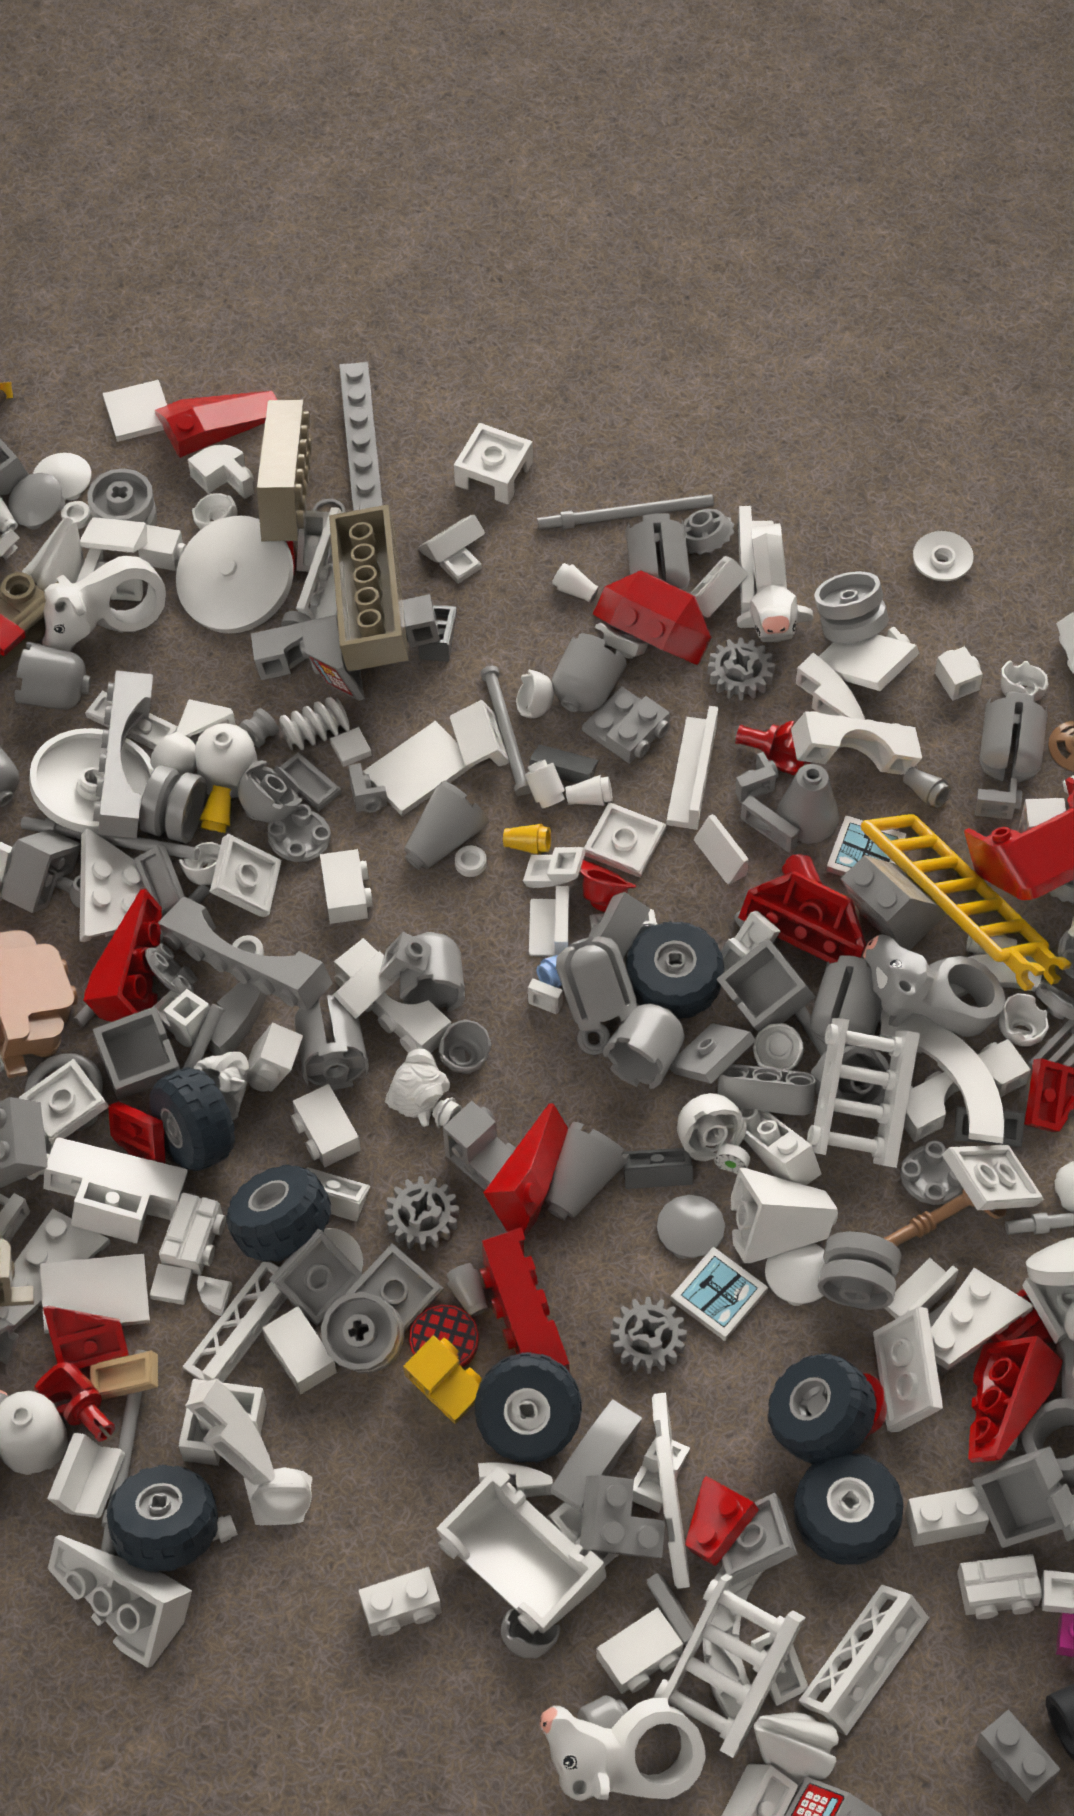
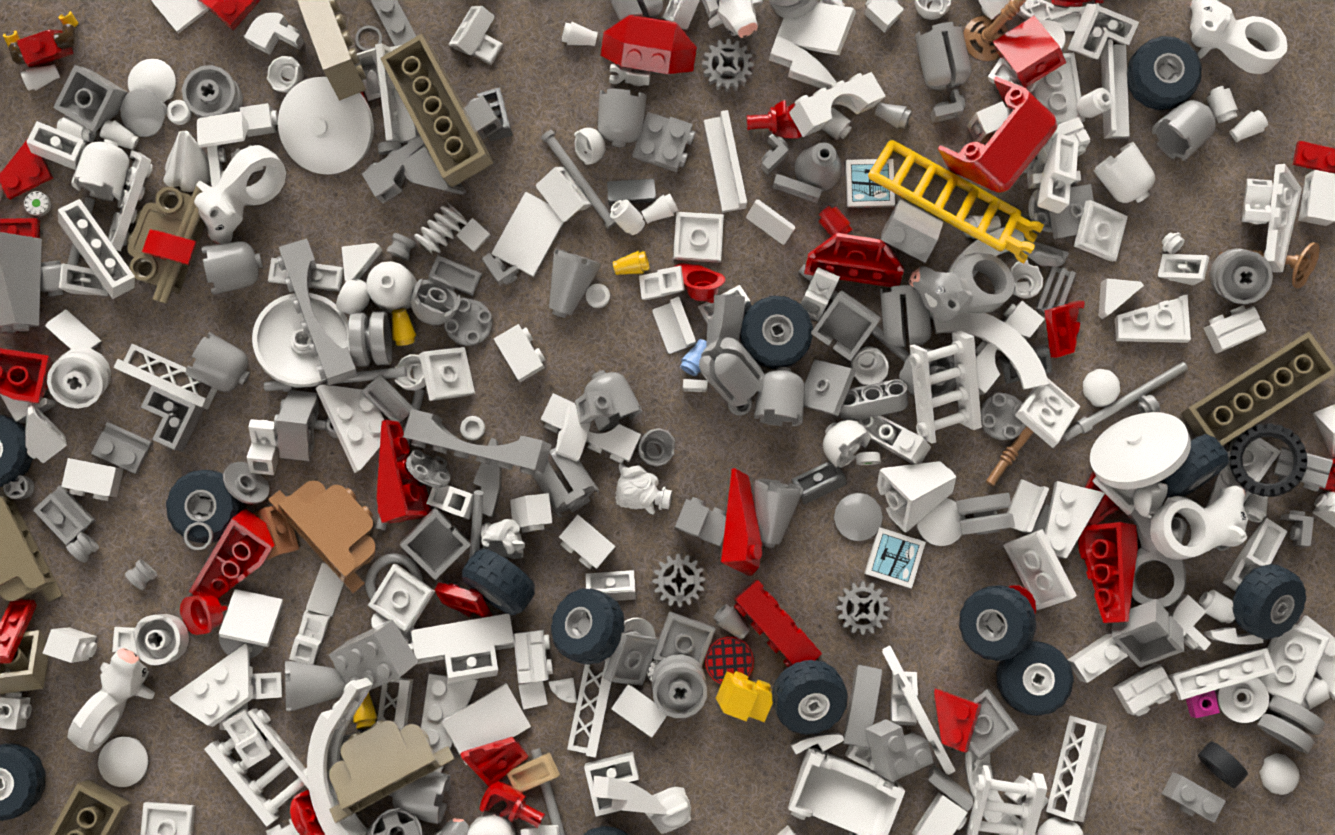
camera: 30 degrees left, 25 degrees up
(847, 771) = (838, 125): none -> white brick

